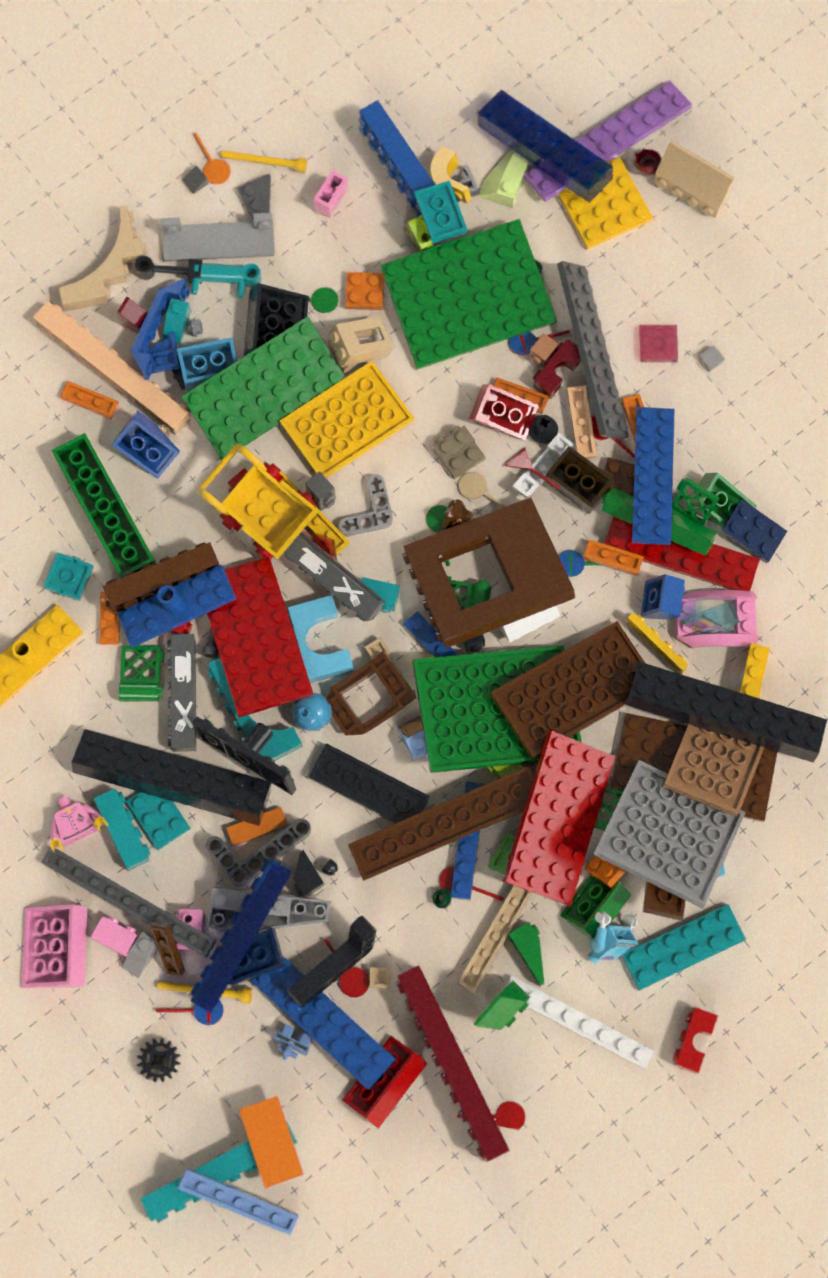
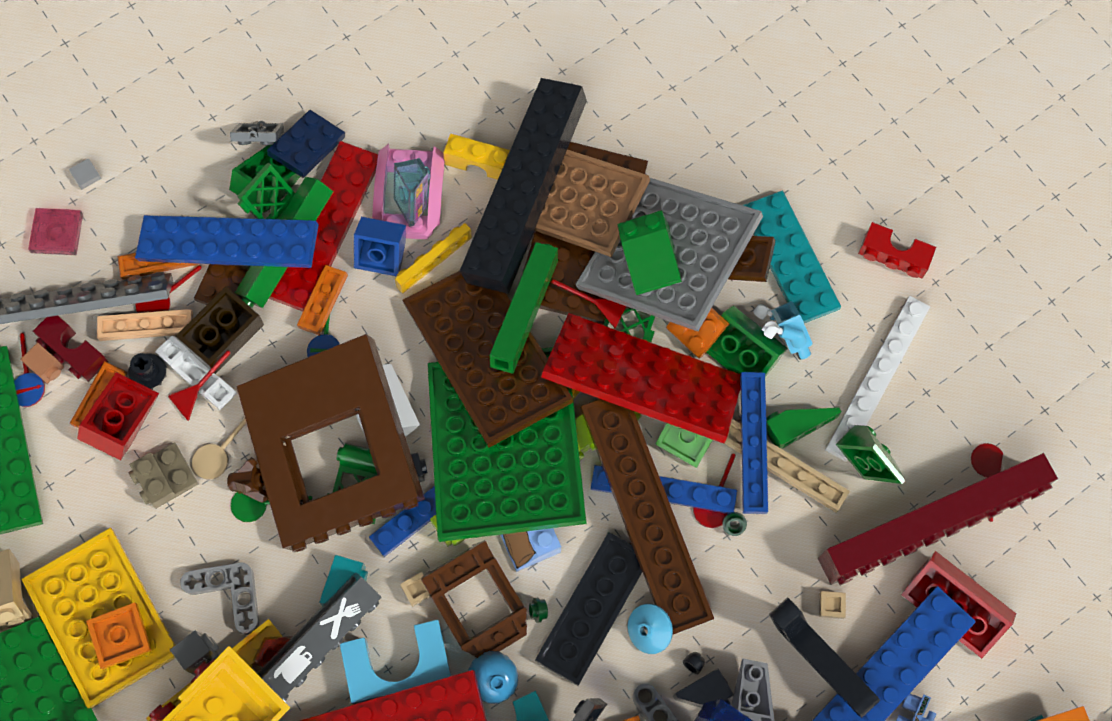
camera: 90 degrees left, 5 degrees down
(331, 435) = (119, 635): none -> orange plate
(353, 830) = (658, 626): none -> medium azure dish
(354, 981) = (836, 635): red piece -> none
(365, 744) = (538, 609): none -> dark green plate
(509, 911) = (754, 443): none -> blue plate
(612, 716) = (524, 308): none -> green brick
(616, 792) = (610, 309): none -> red piece
(664, 815) = (649, 252): none -> green slope
(757, 489) = (252, 132): none -> dark grey plate

